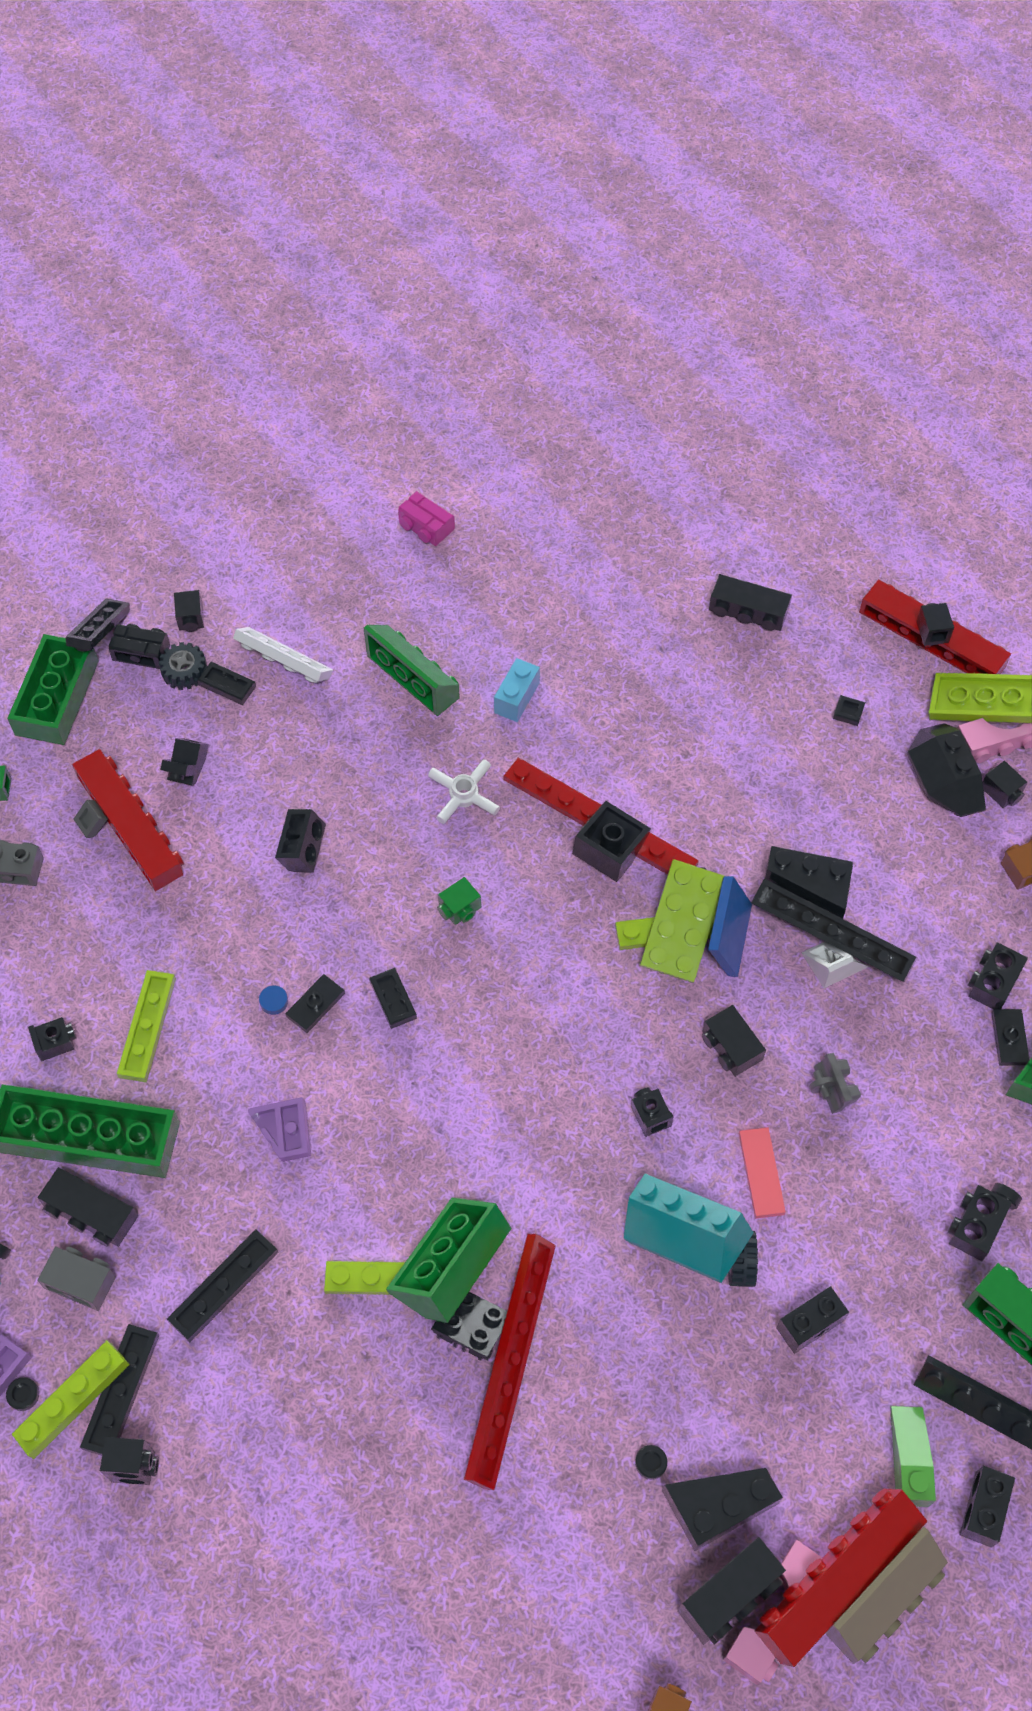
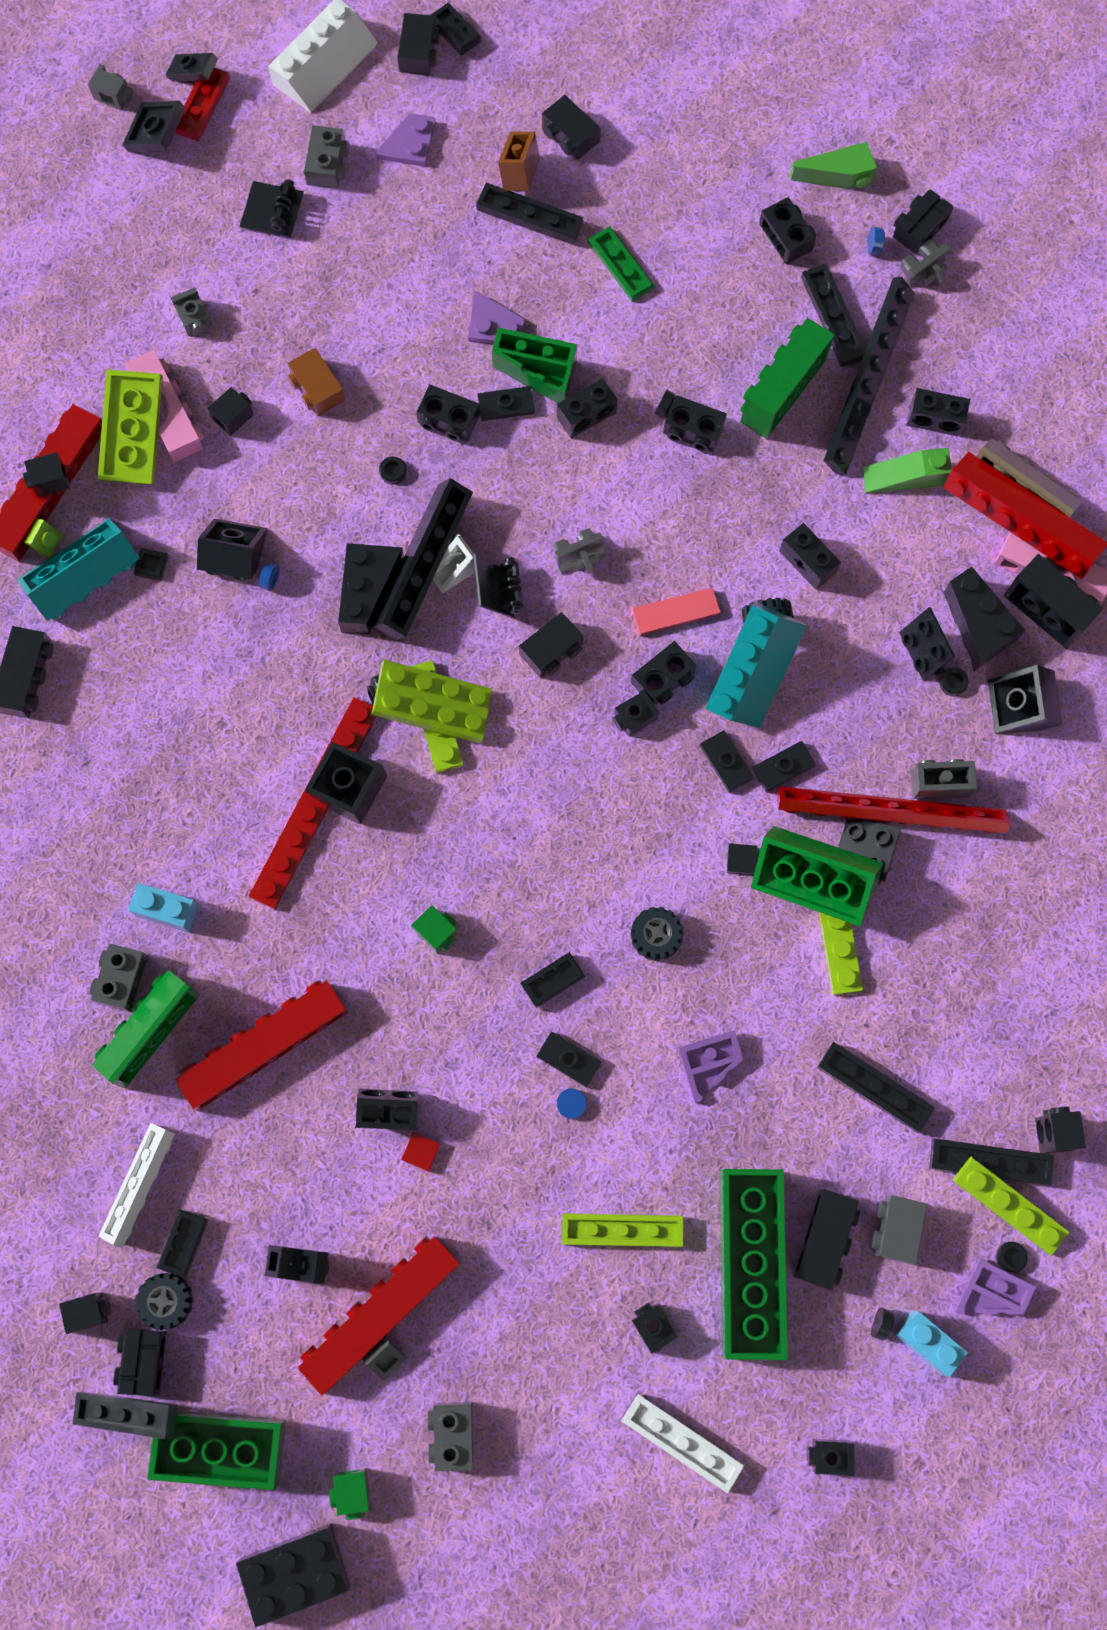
camera: 100 degrees left, 15 degrees up
(259, 869) = (420, 1152): none -> red tile
(381, 754) = (261, 1045): none -> red brick
(420, 1088) = (661, 924): none -> black wheel
(460, 783) = (289, 940): white bar -> none
(461, 654) = (118, 977): none -> dark grey brick
(484, 1190) = (741, 859): none -> black tile
(534, 1415) = (943, 779): none -> dark grey brick
(577, 1255) = (783, 766): none -> black plate
(590, 1196) = (726, 761): none -> black plate
(616, 1539) = (1025, 700): none -> black slope
(697, 1142) = (658, 670): none -> black brick
(705, 1424) = (927, 644): none -> black hinge
(730, 926) = (432, 655): blue tile -> none
(800, 992) = (498, 585): none -> black hinge
(828, 801) = (269, 576): none -> blue tile
(845, 651) = (78, 569): none -> teal slope
(859, 771) = (230, 549): none -> black slope
(878, 627) = (43, 538): none -> lime plate
(937, 922) = (392, 470): none -> black tile
(947, 770) = (214, 465): black wedge -> none
(1000, 1111) = (587, 408): none -> black brick

